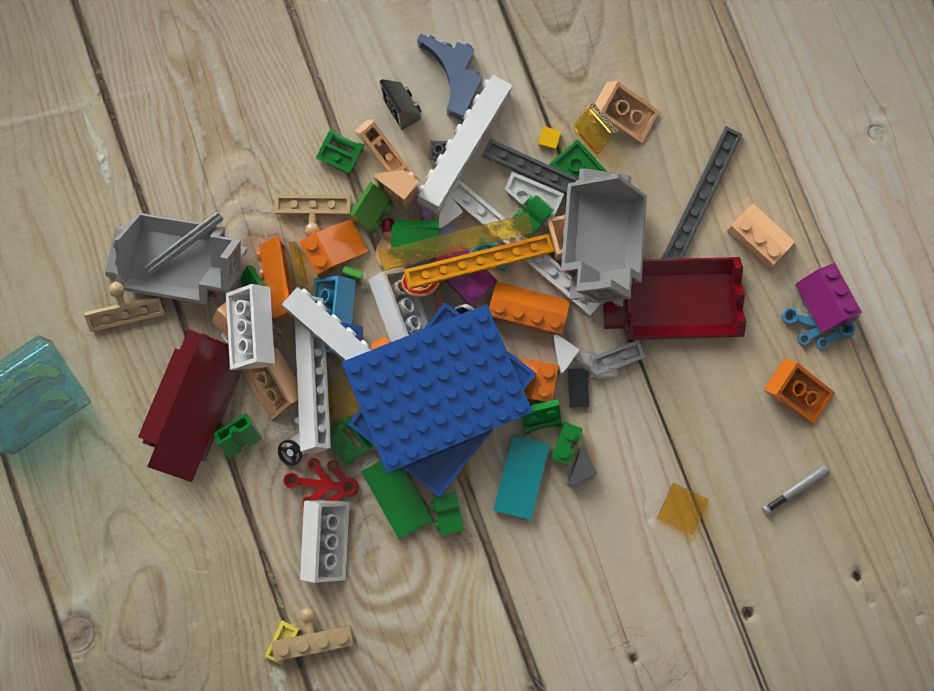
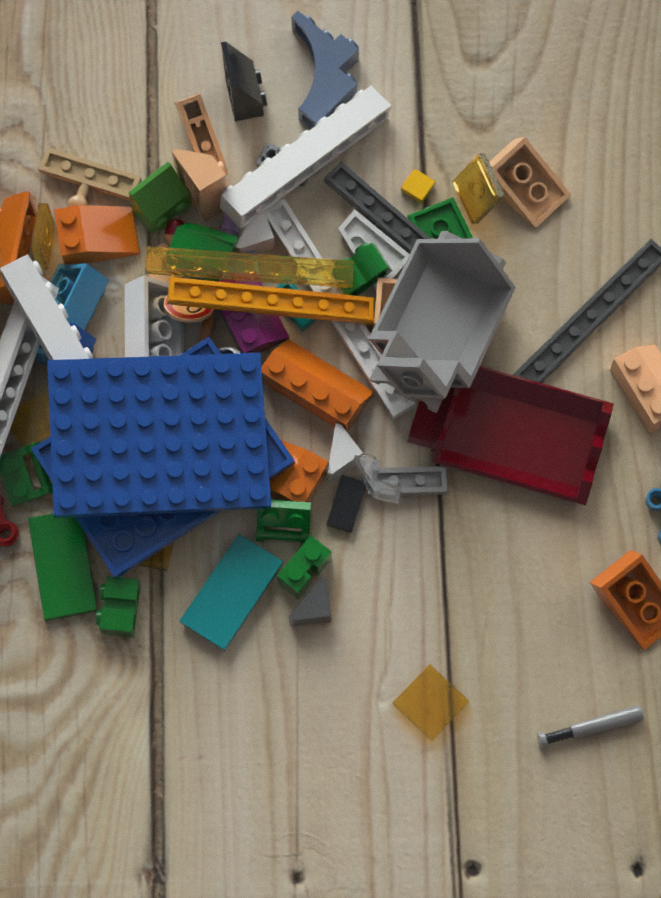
camera: 20 degrees right, 10 degrees down
(337, 157) = (142, 128): green plate -> none
(353, 274) = (109, 272): bright green tile -> none

